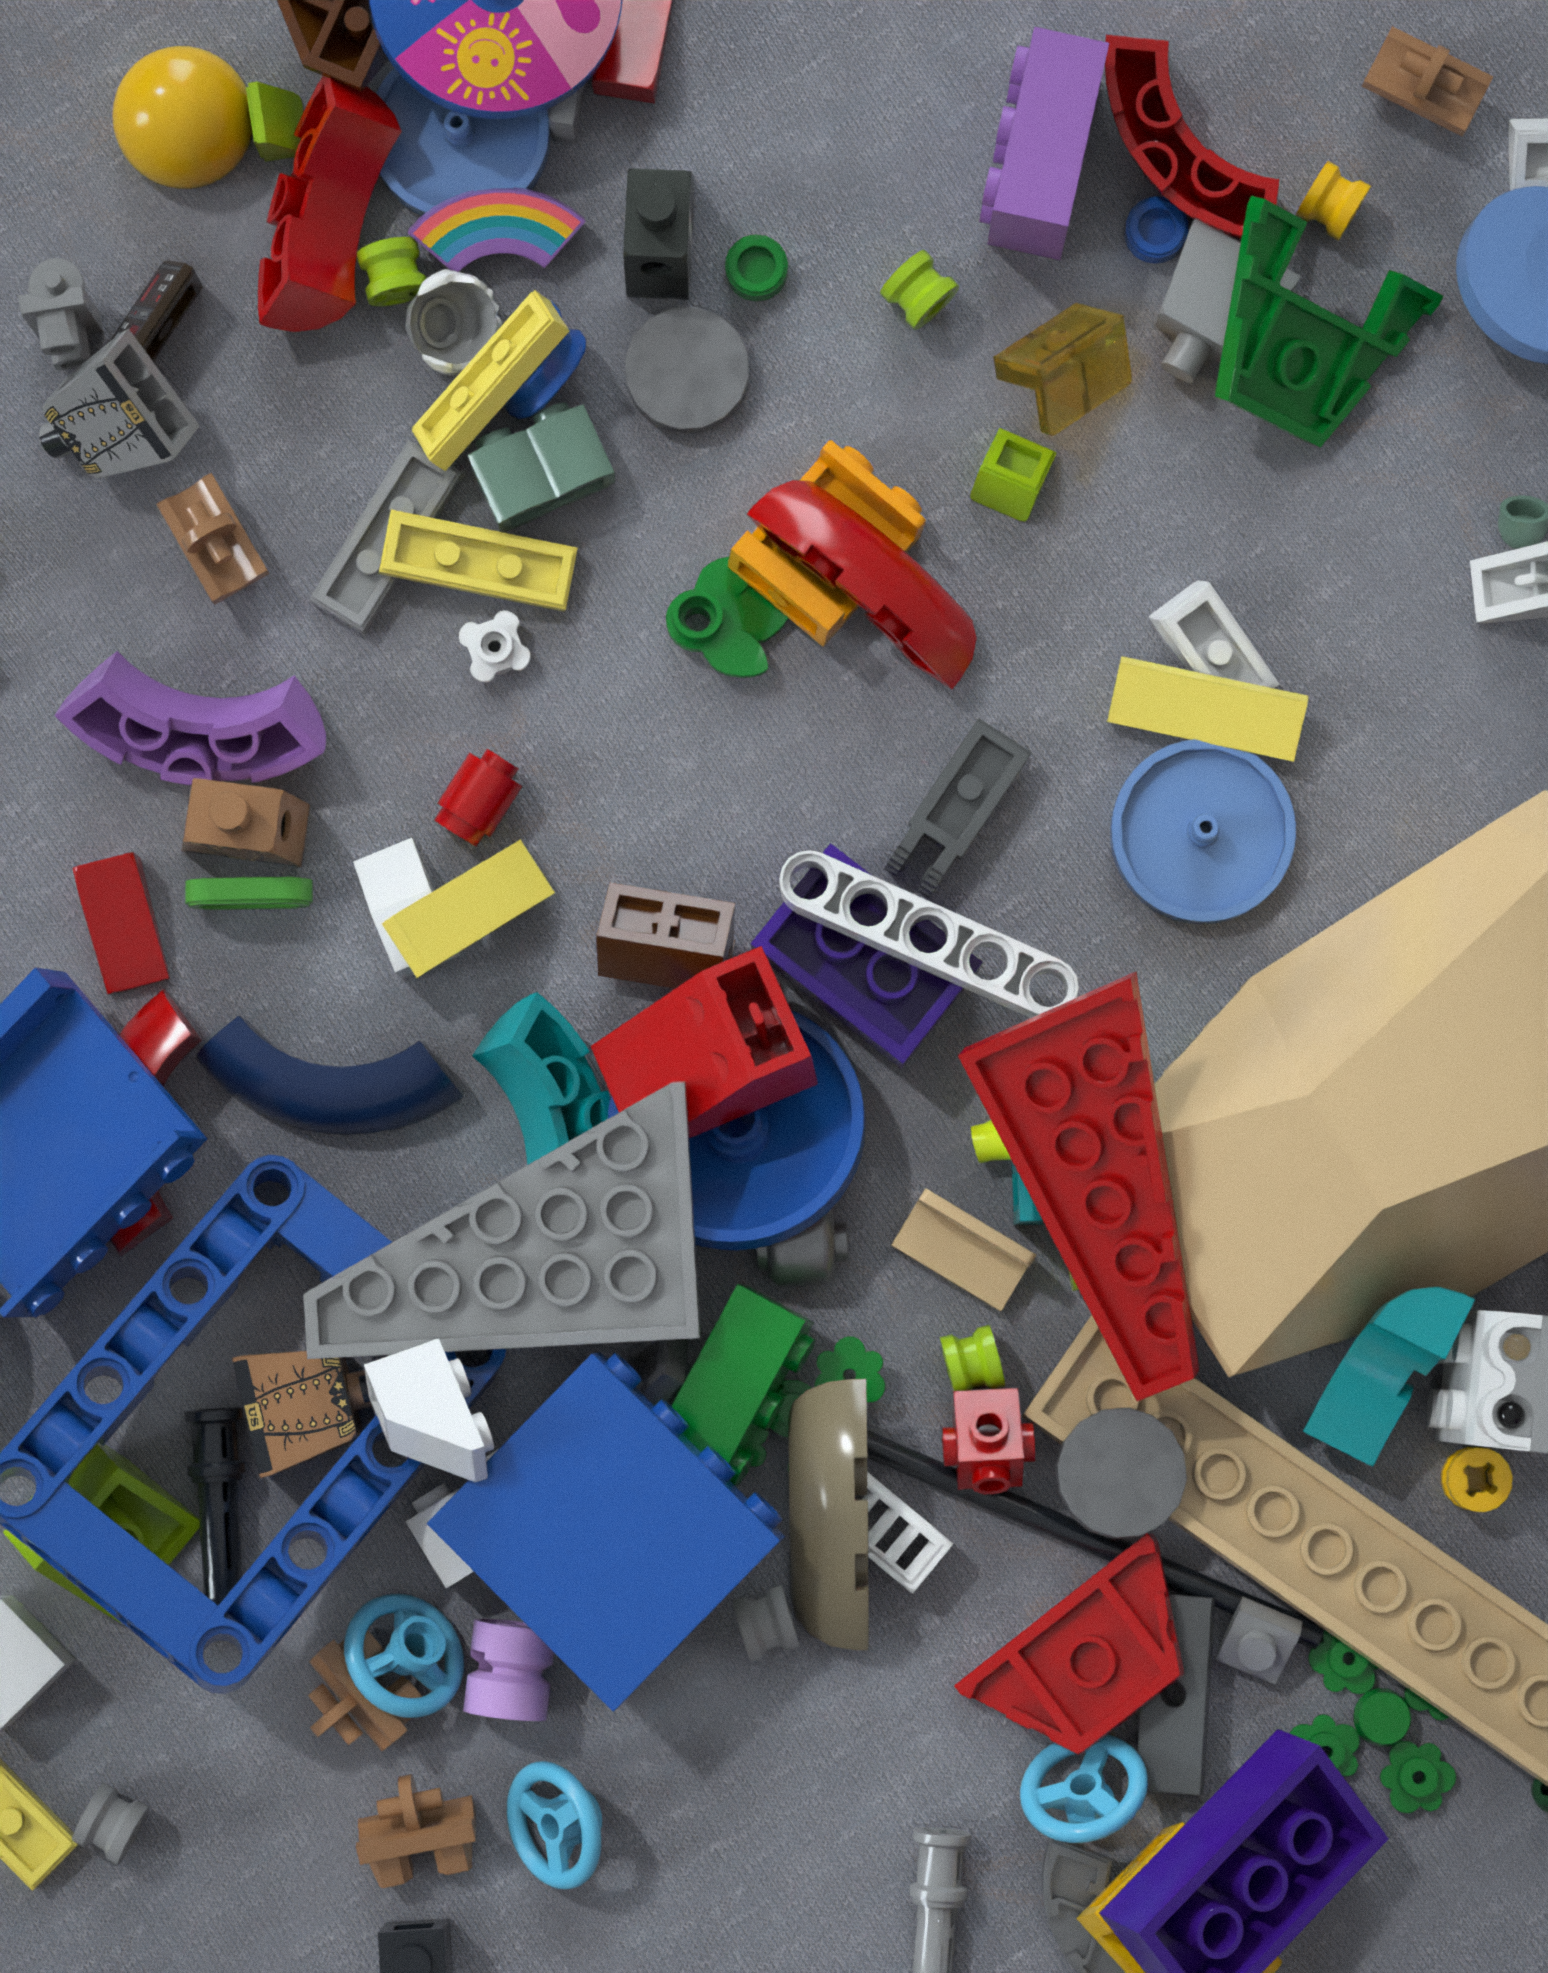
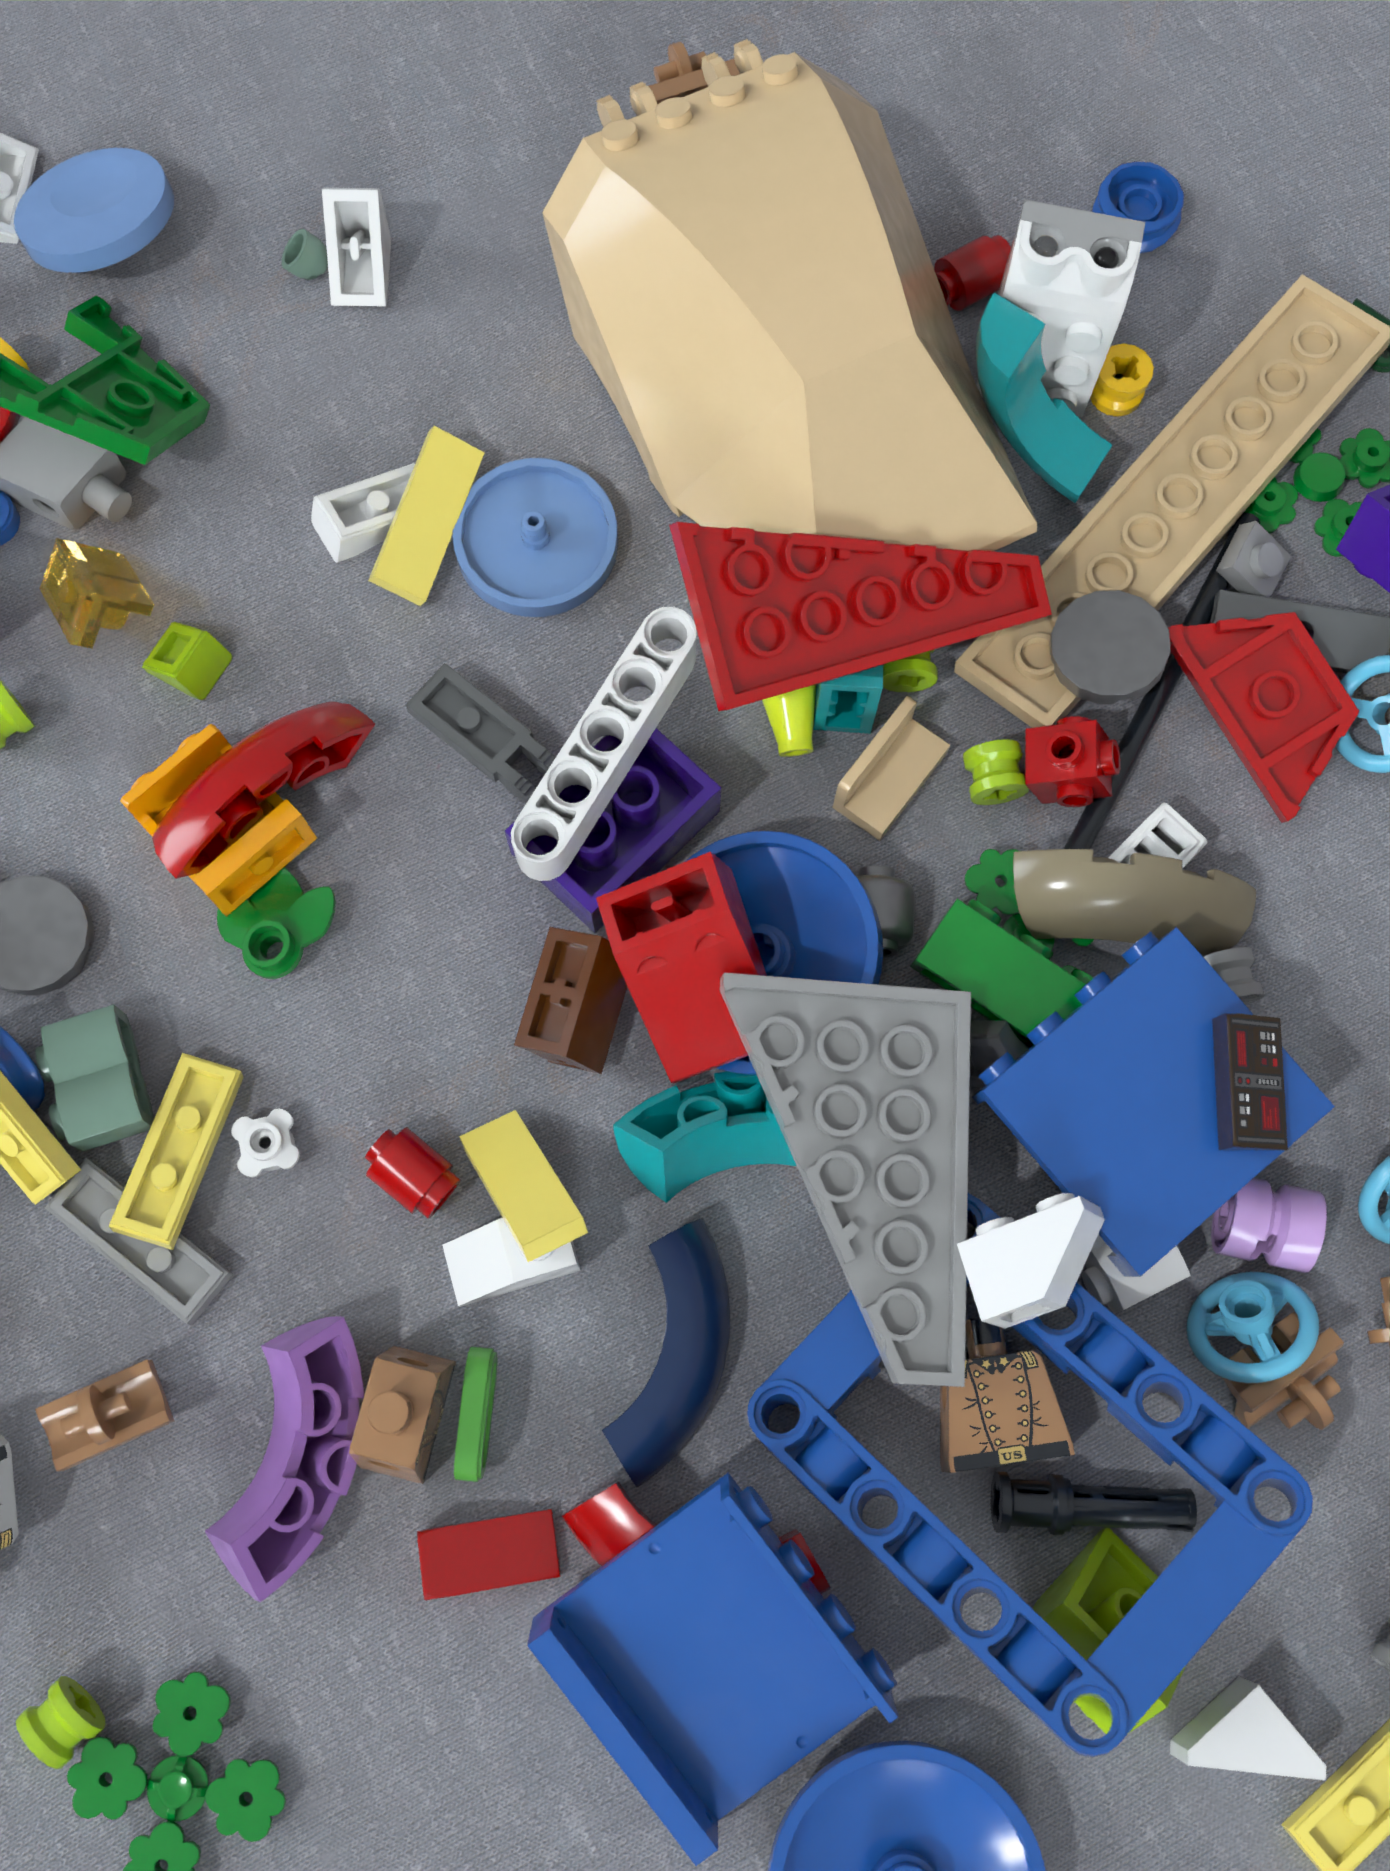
camera: 90 degrees left, 10 degrees down
(623, 1621) = (1249, 1082): none -> slope

